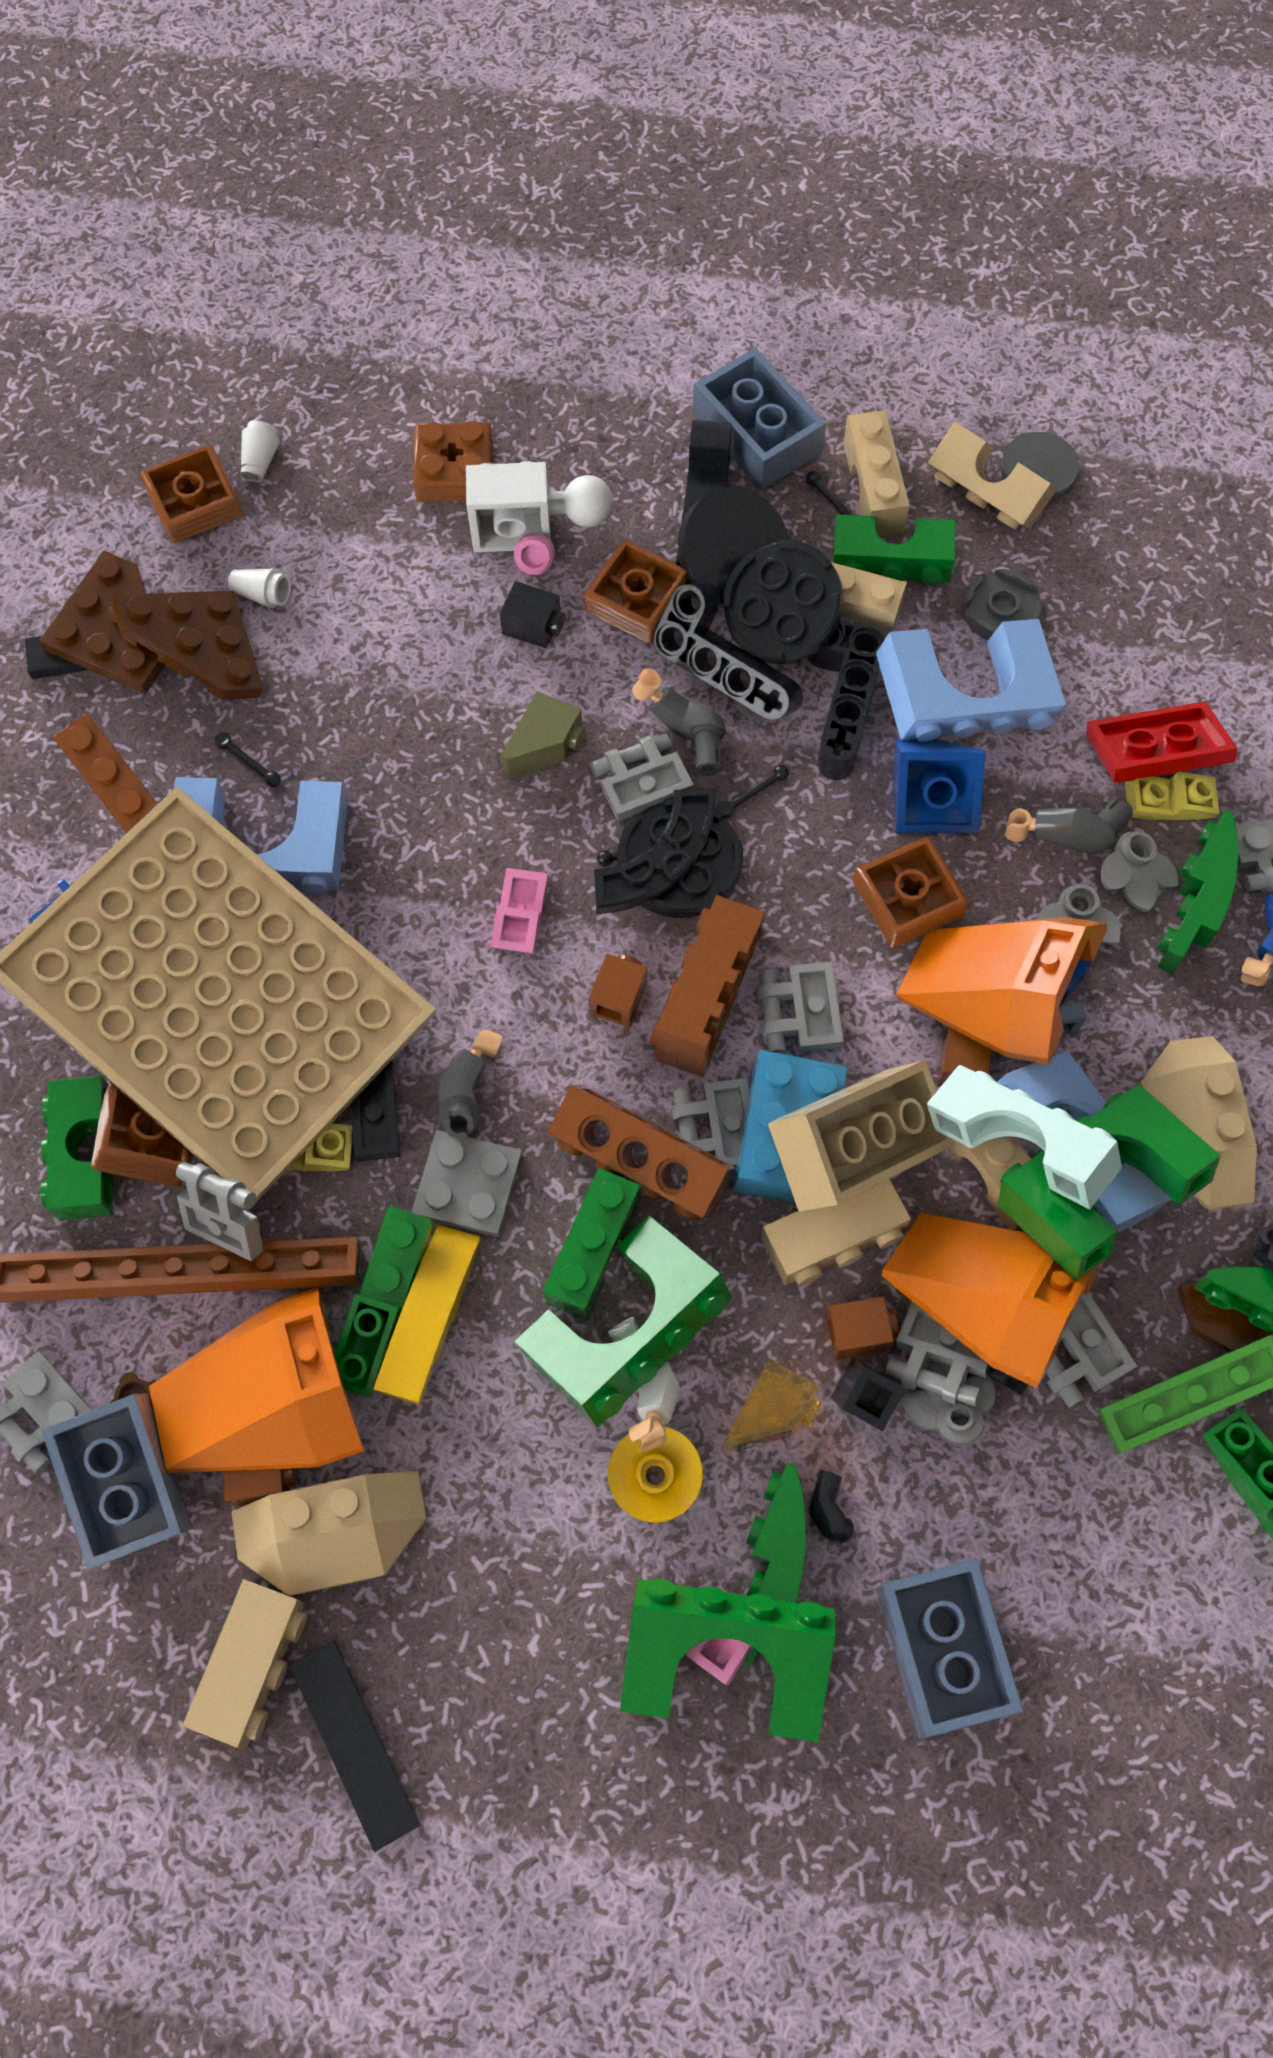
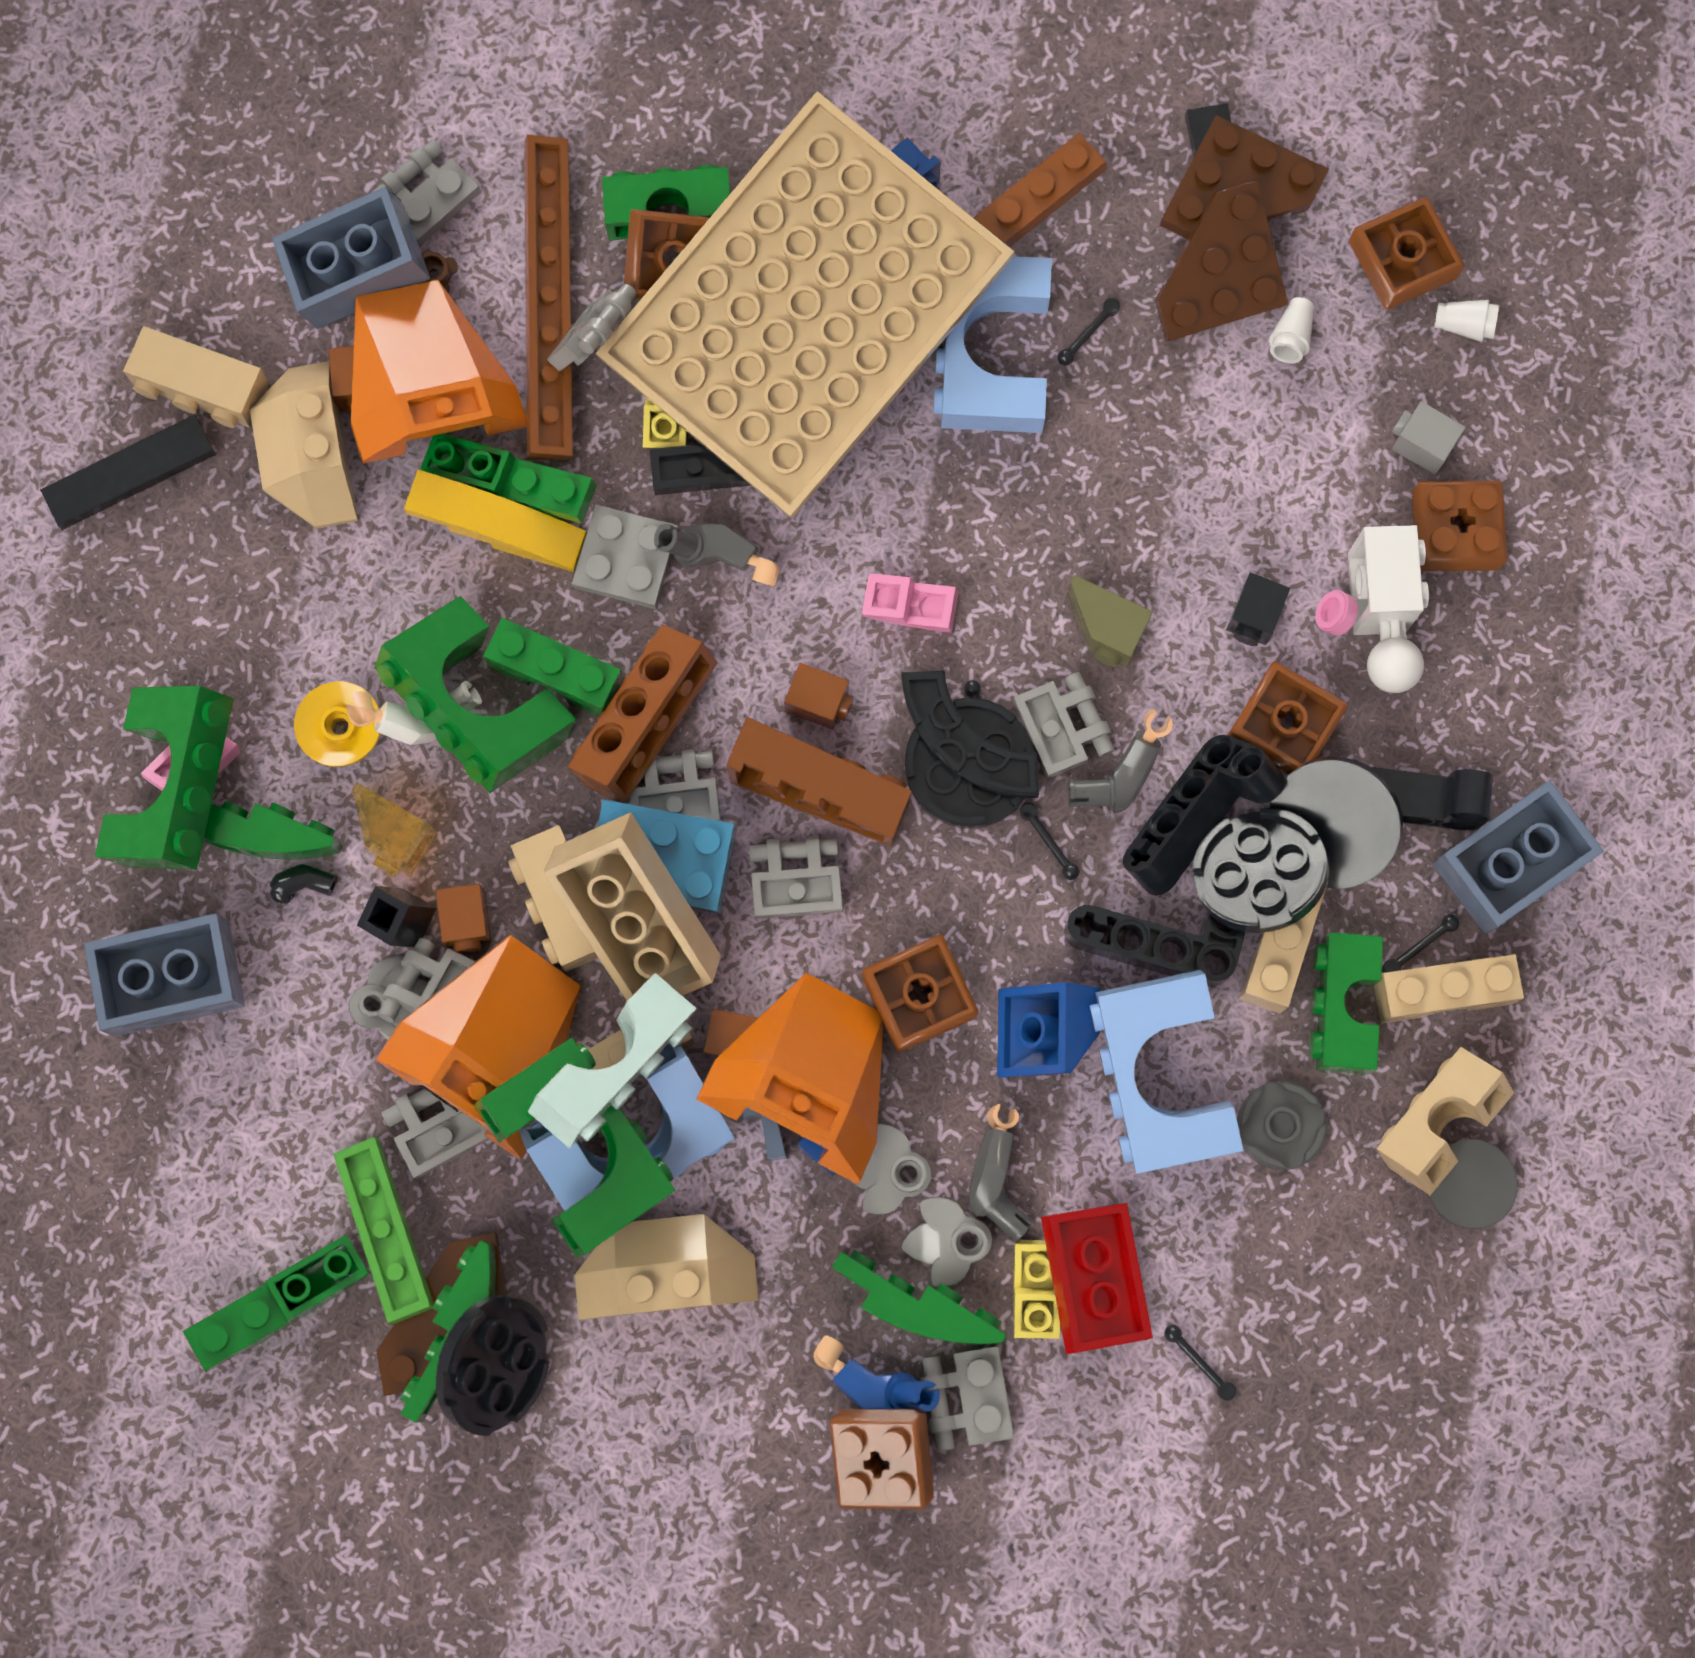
camera: 90 degrees right, 10 degrees up
(370, 481) = (1426, 436): none -> light grey brick
(1238, 651) = (1224, 1389): none -> black hinge

